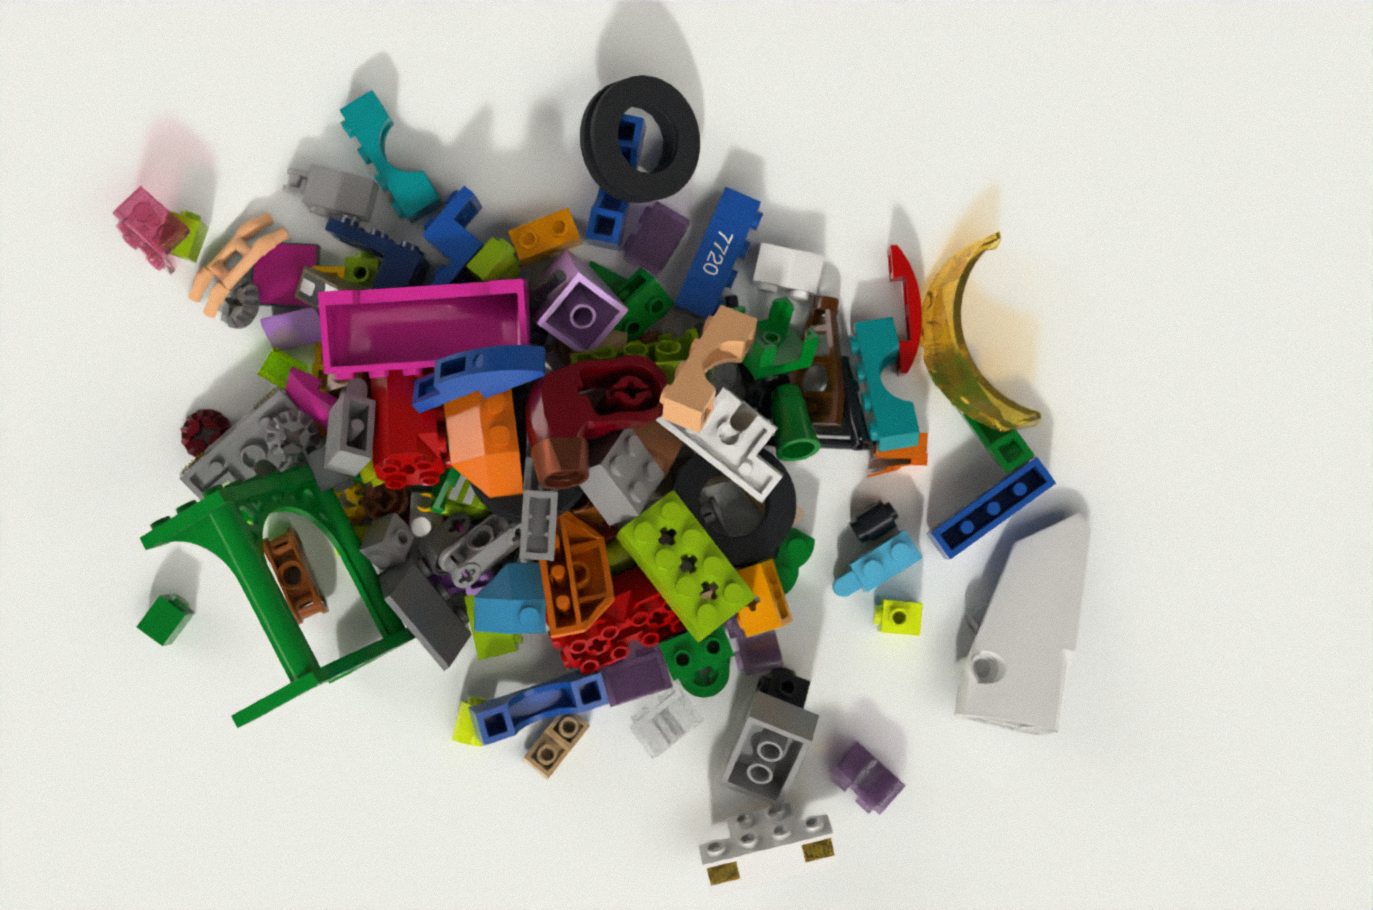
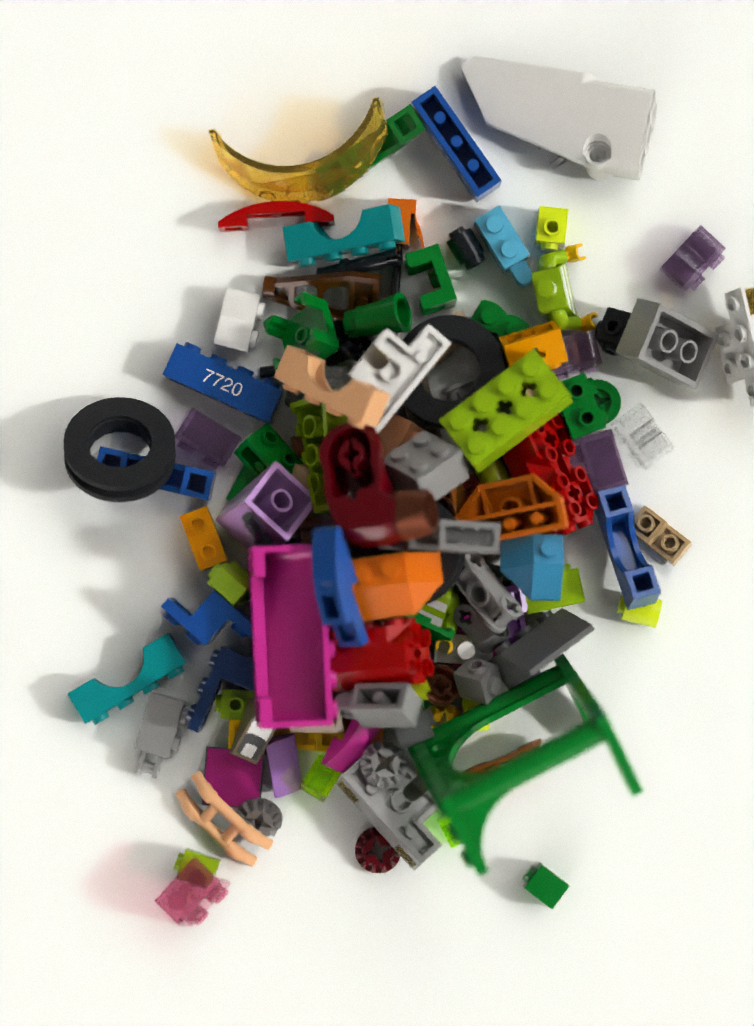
camera: 85 degrees left, 0 degrees up
(827, 621) = (555, 291): none -> lime torso
(859, 477) = (427, 259): none -> green panel

